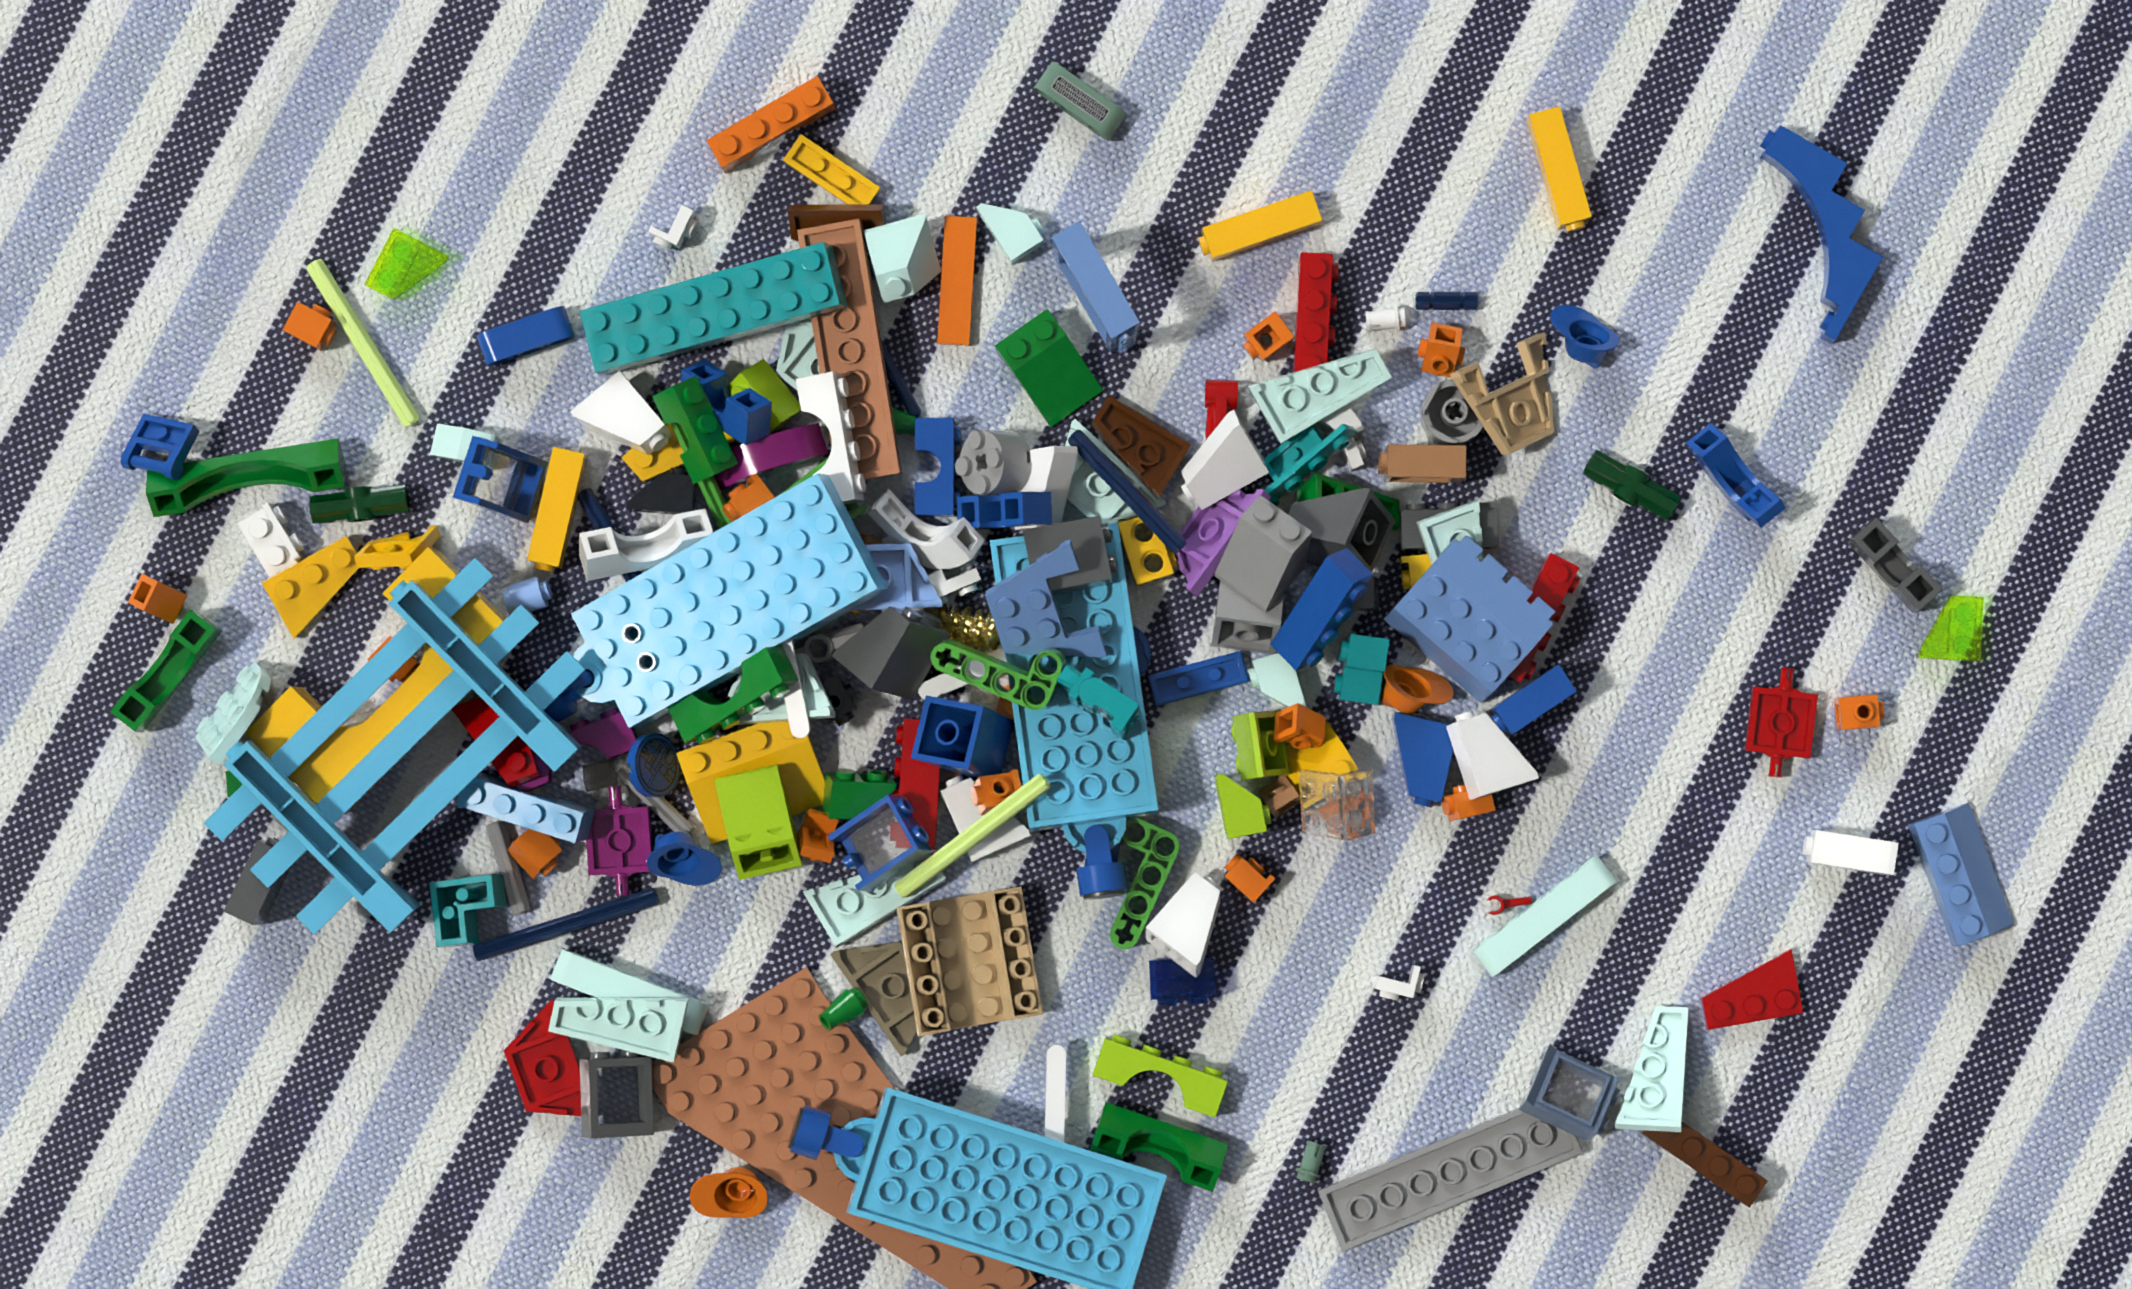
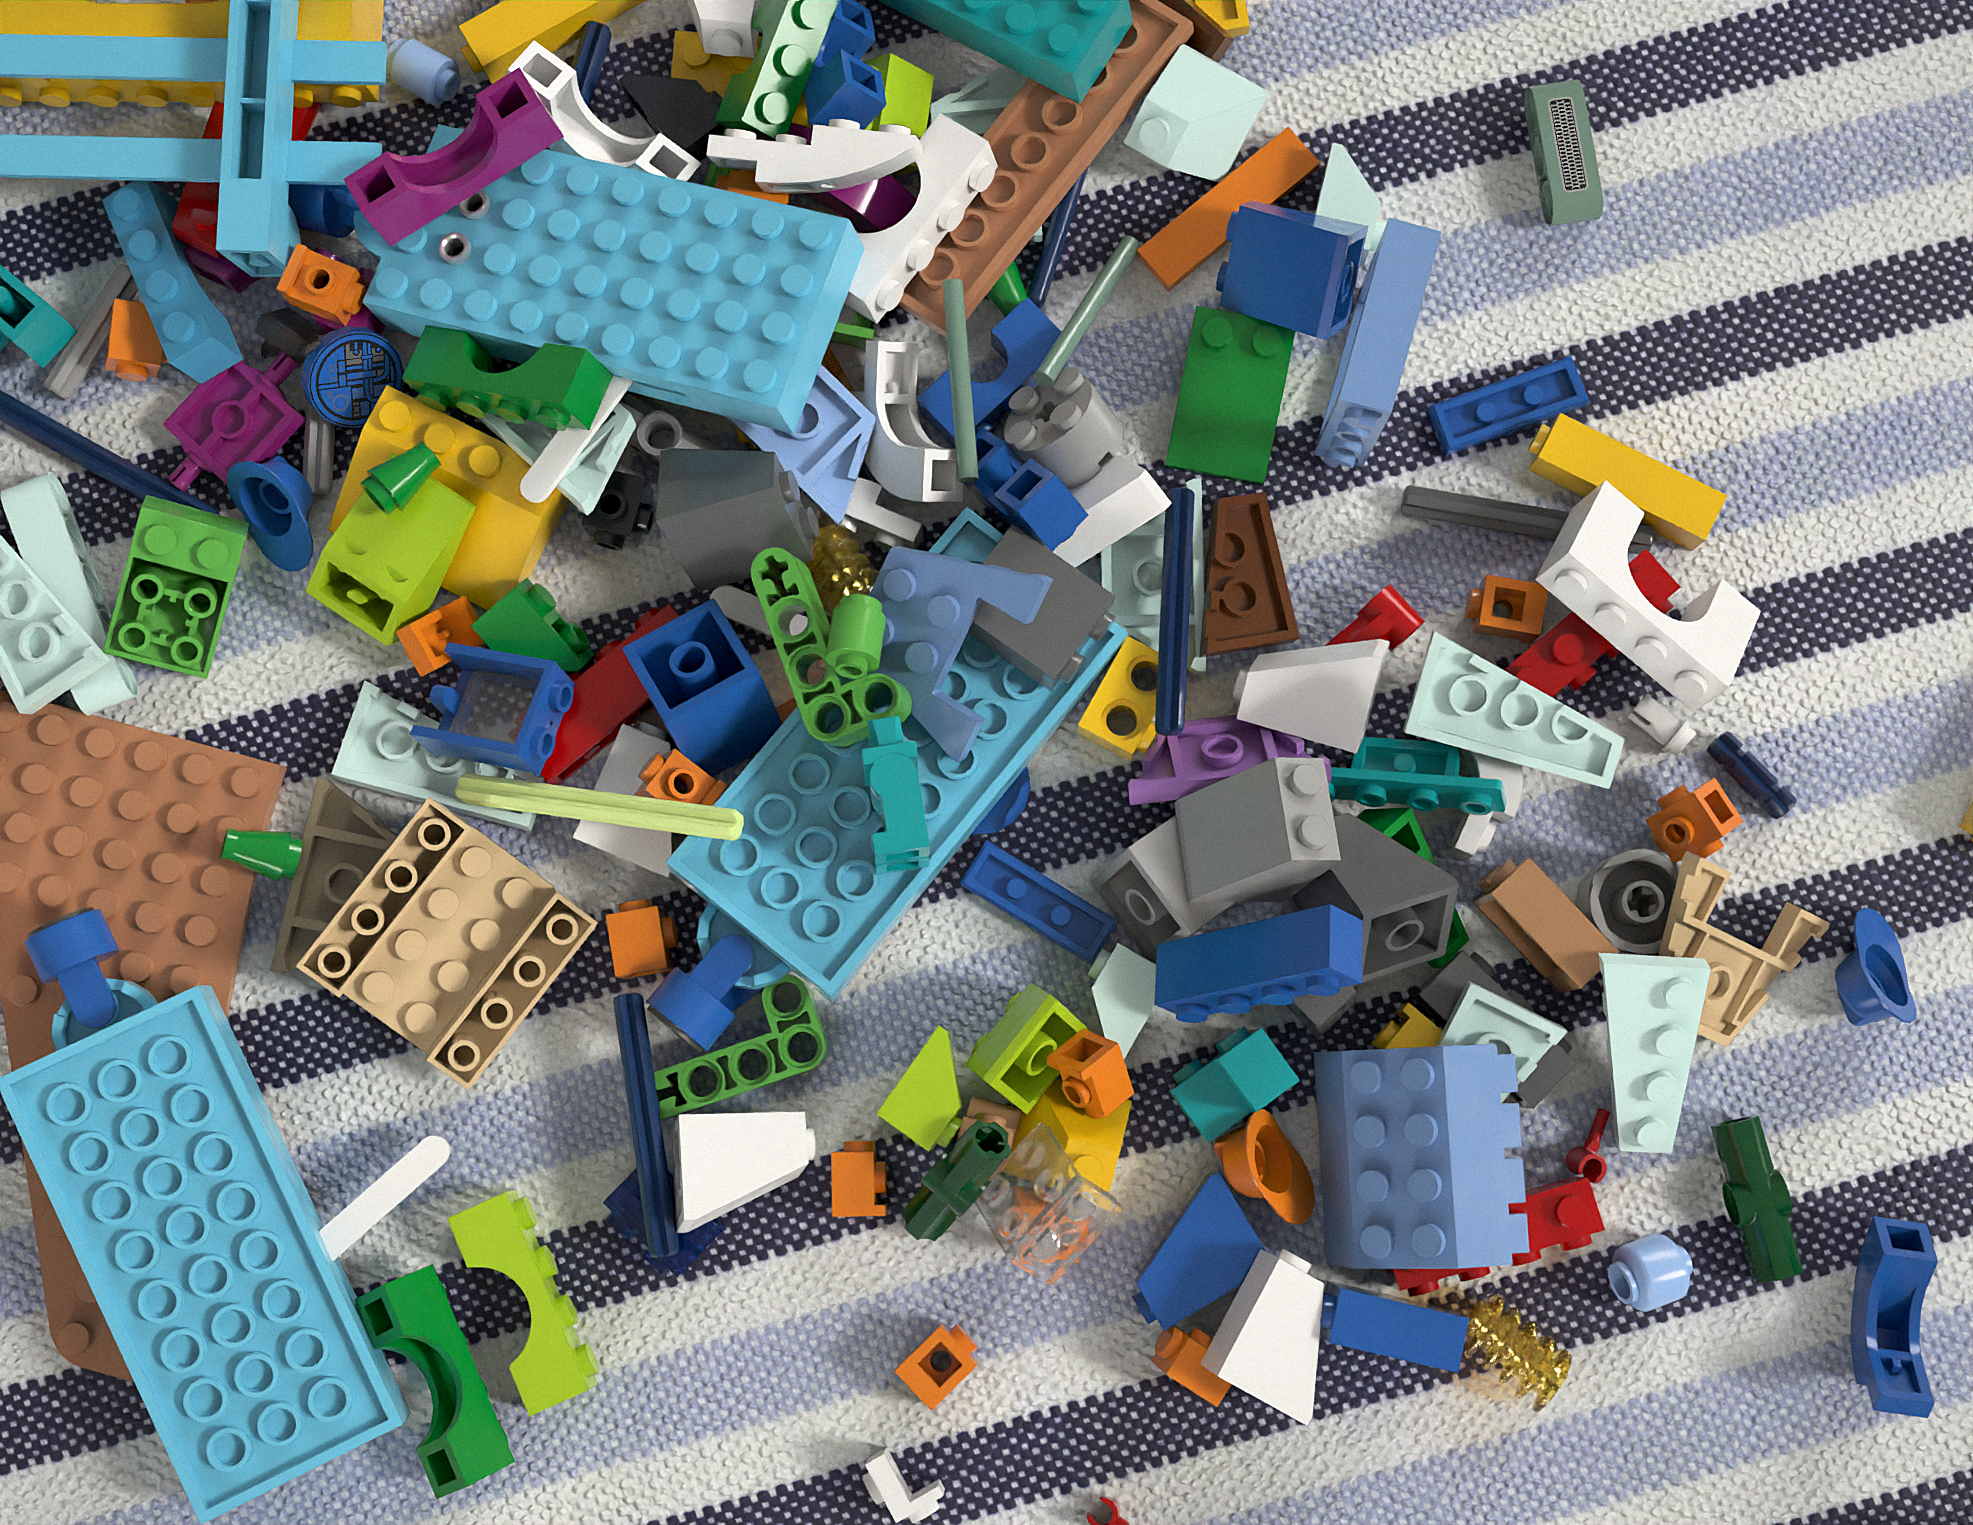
camera: 50 degrees right, 5 degrees down
(589, 738) = (305, 276): none -> orange brick
(605, 654) = (410, 191): none -> magenta arch
(677, 936) = (175, 587): none -> bright green slope
(734, 787) = (399, 478): none -> green cone
(775, 449) = (835, 160): none -> white slope
(930, 488) = (960, 381): none -> sand green bar
(947, 396) = (1086, 311): none -> sand green bar
(1012, 649) = (856, 636): none -> bright green brick
(1019, 285) = (1291, 268): none -> blue slope
(1045, 873) = (641, 939): none -> orange brick
(1135, 946) = (646, 1125): none -> dark blue axle
(1174, 242) = (1508, 406): none -> blue tile
(1234, 287) = (1498, 515): none -> dark grey axle
(1290, 832) = (956, 1180): none -> dark green piece
(1291, 294) = (1593, 579): none -> white arch
(1362, 929) = (929, 1382): none -> orange brick
(1517, 467) = (1652, 1033): none -> light aqua wing
(1541, 538) = (1579, 1156): none -> red hand
(1594, 655) = (1517, 1350): none -> clear yellow piece
(1618, 564) = (1650, 1272): none -> light blue head

